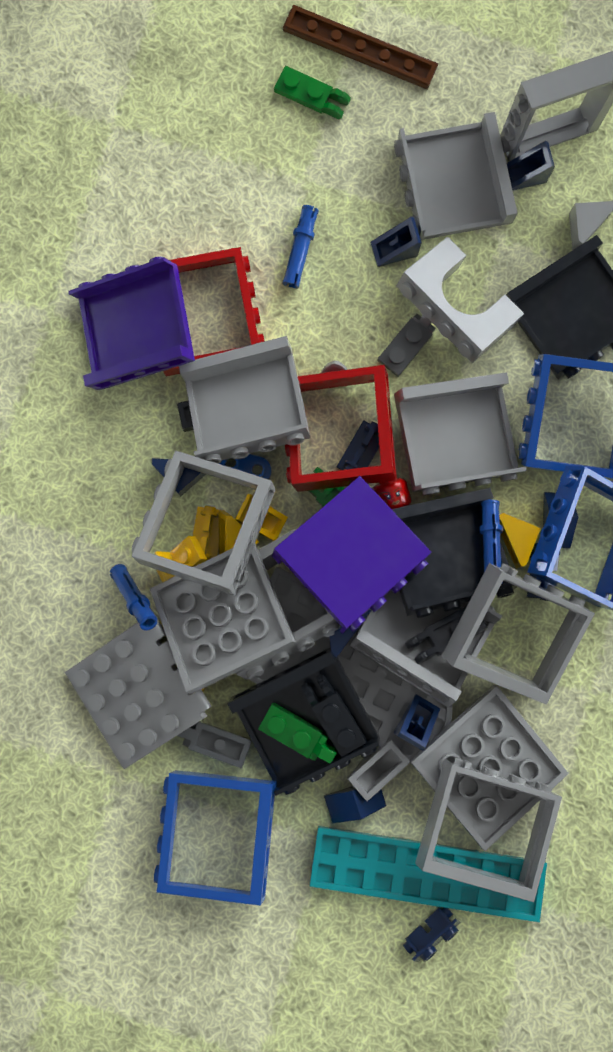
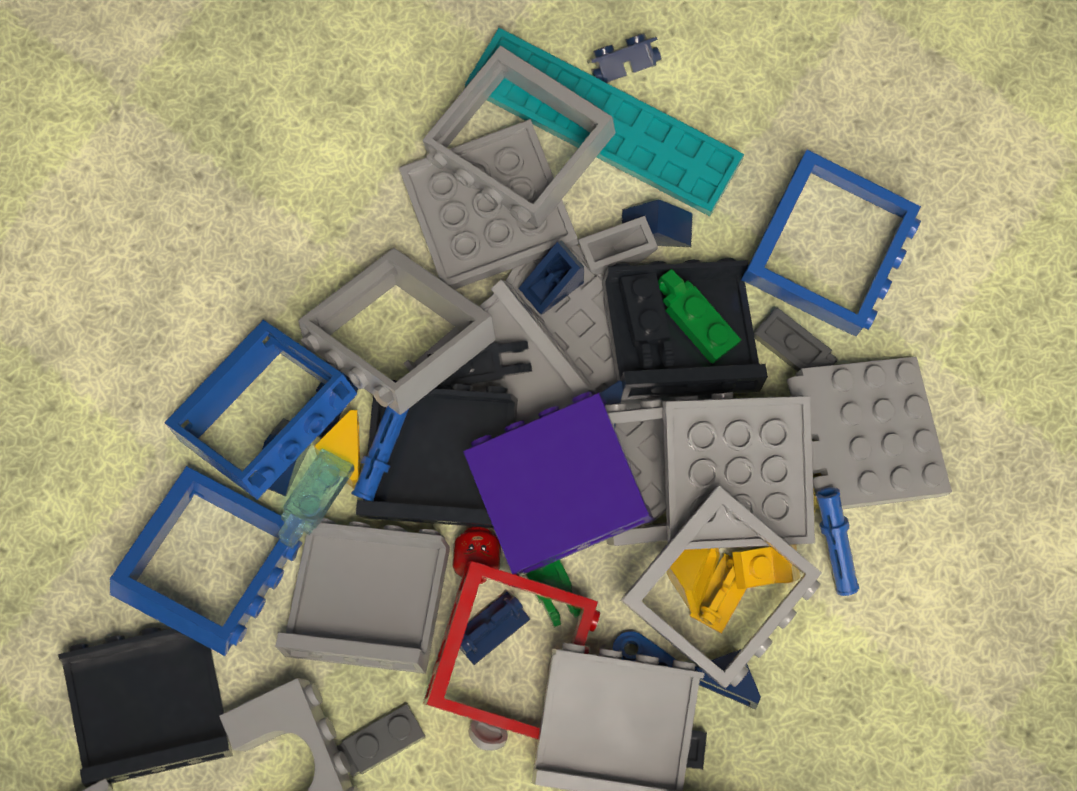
camera: 155 degrees left, 10 degrees down
(272, 523) = (663, 593): yellow slope -> none
(525, 487) = (313, 496): none -> clear light blue hinge

